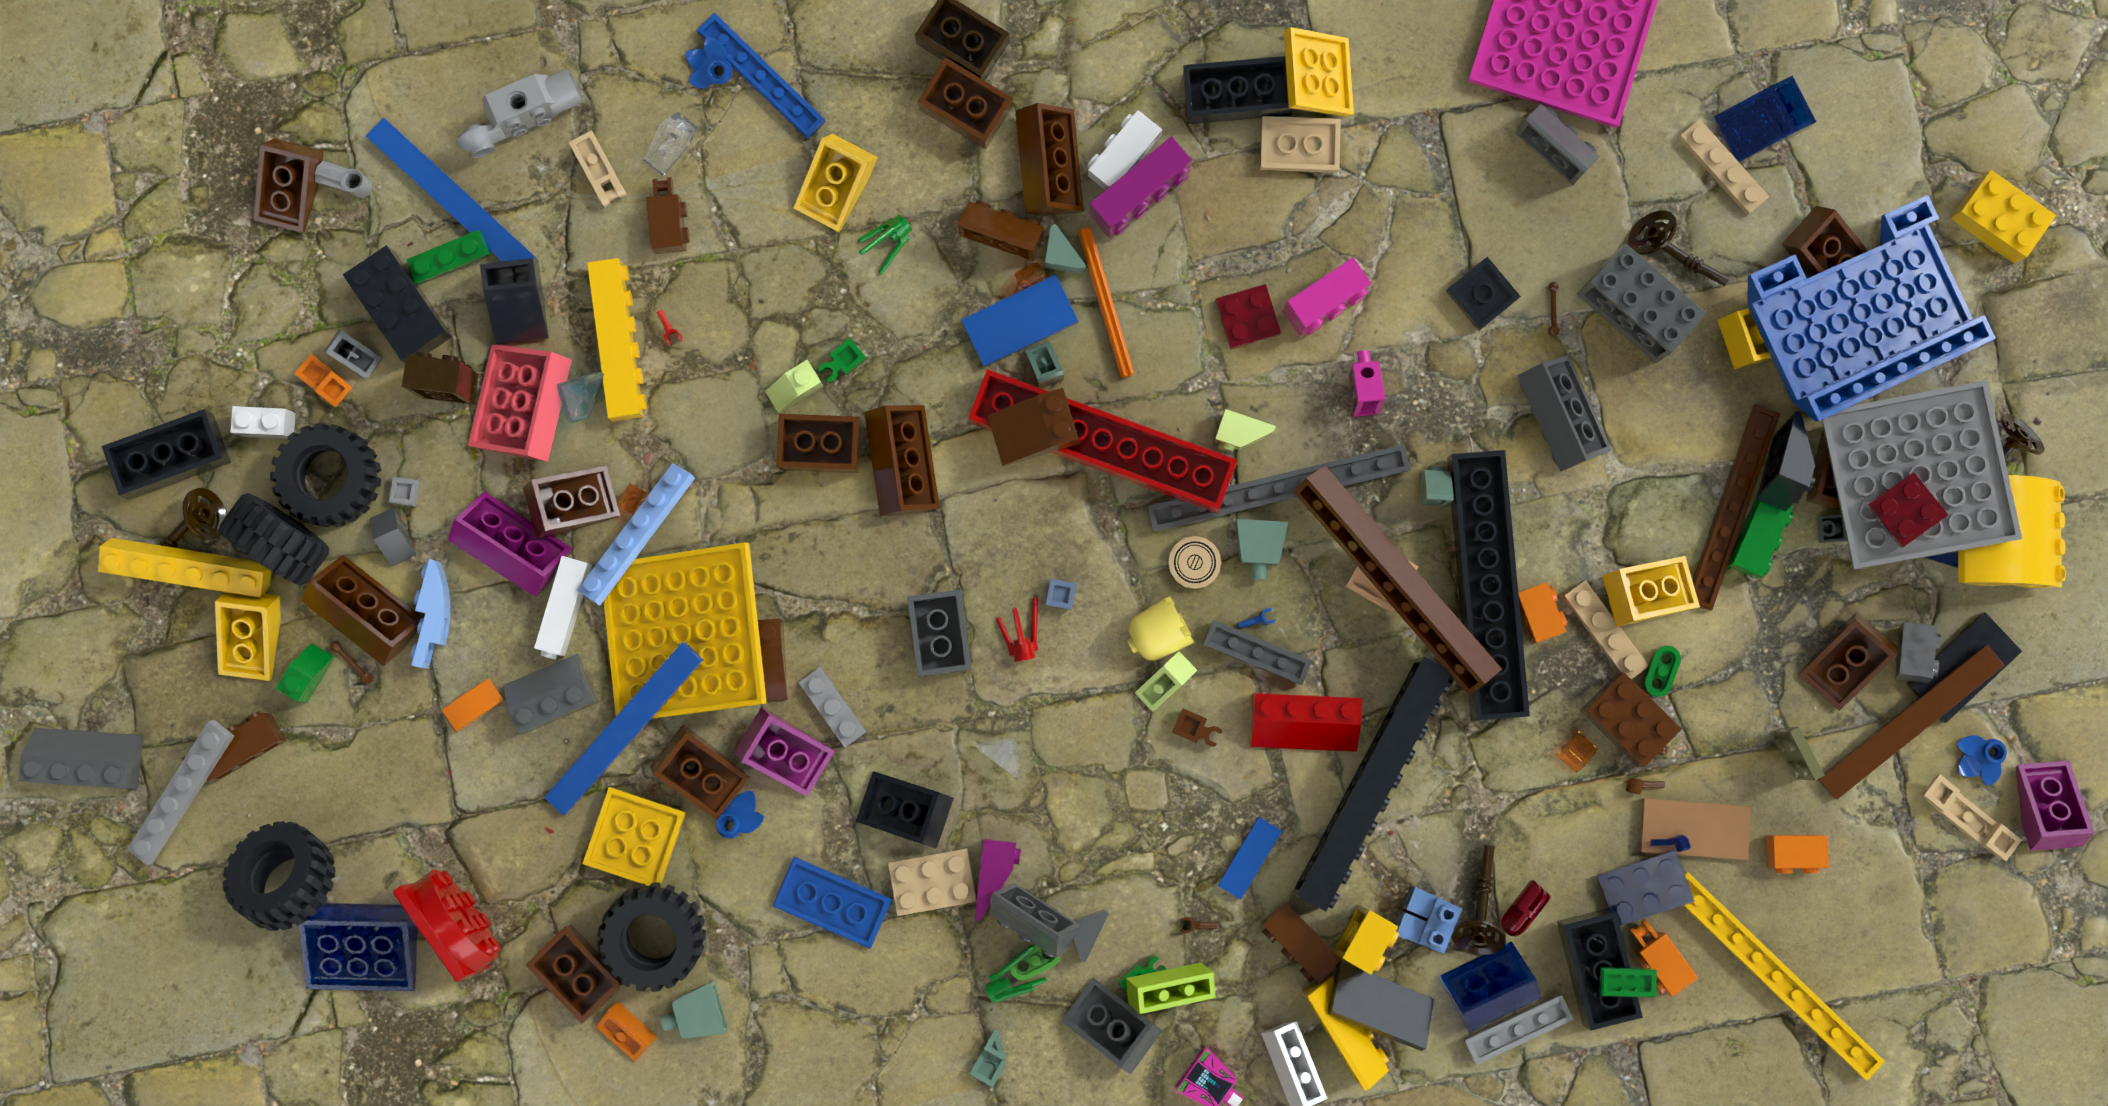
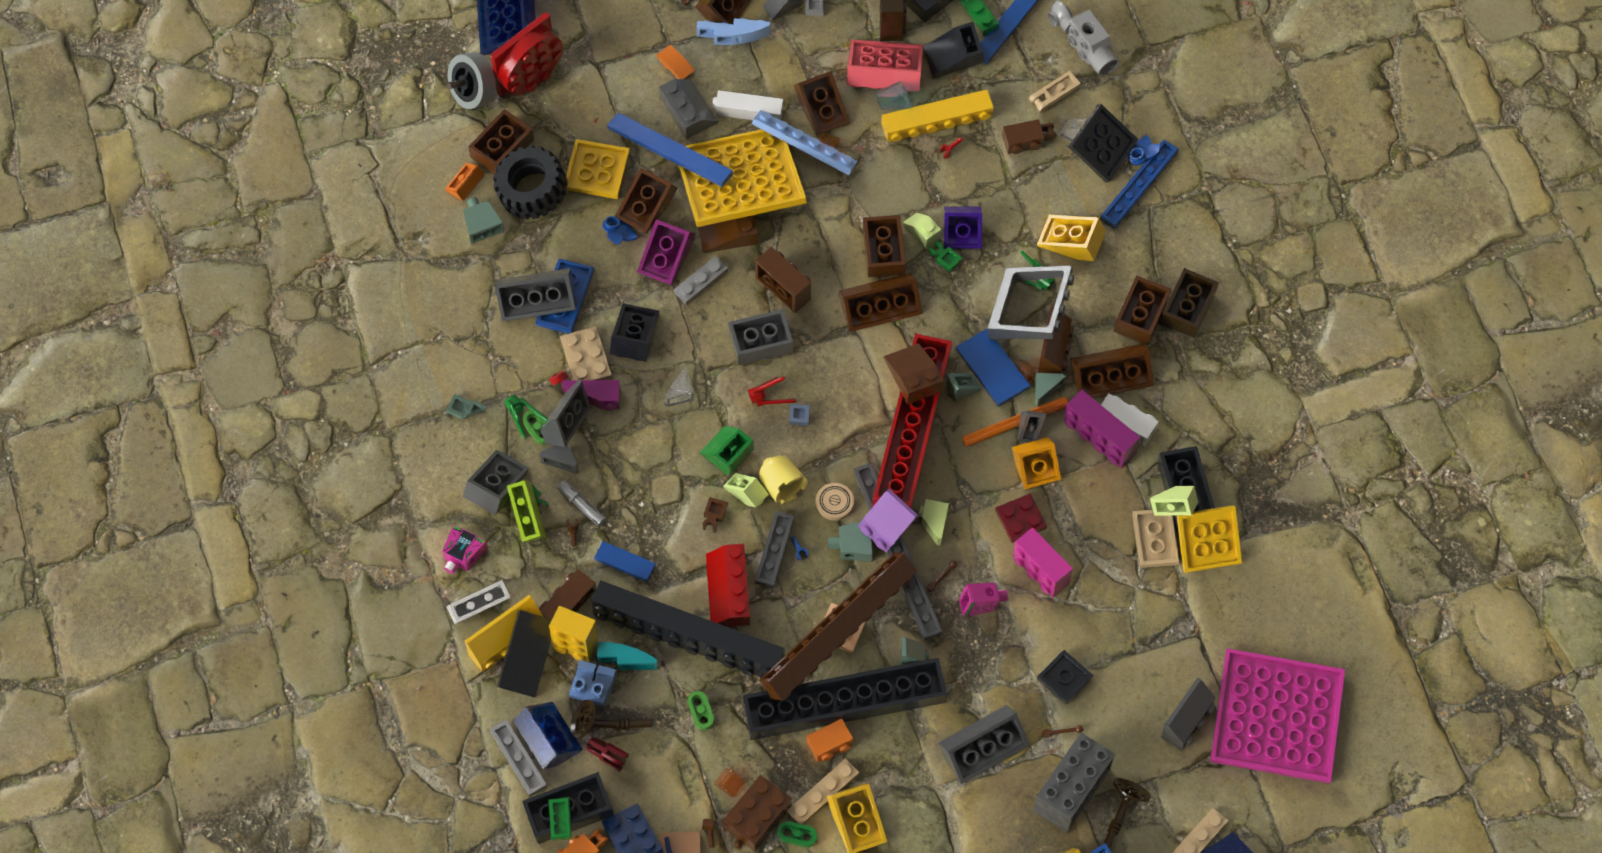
camera: 85 degrees right, 20 degrees down
(470, 1010) = (471, 80): none -> light grey wheel
(508, 544) = (788, 65): magenta slope -> none
(699, 113) = (1103, 143): none -> black plate
(799, 329) = (963, 227): none -> dark purple slope
(831, 944) = (536, 294): none -> dark grey slope
(855, 590) = (783, 279): none -> reddish brown brick
(890, 275) = (1013, 275): none -> dark grey windscreen
(964, 923) = (558, 377): none -> red tile
(1102, 700) = (728, 449): none -> green slope
(1119, 281) = (1030, 426): none -> dark grey slope
(1157, 909) = (575, 497): none -> light grey pin
(1172, 283) = (1036, 463): none -> light orange slope
(1257, 495) = (887, 521): none -> medium lavender slope
(1273, 104) = (1175, 501): none -> yellowish green slope
(1332, 450) = (931, 586): none -> reddish brown hinge
(1391, 870) = (625, 656): none -> teal slope
(1477, 778) = (701, 711): none -> bright green plate

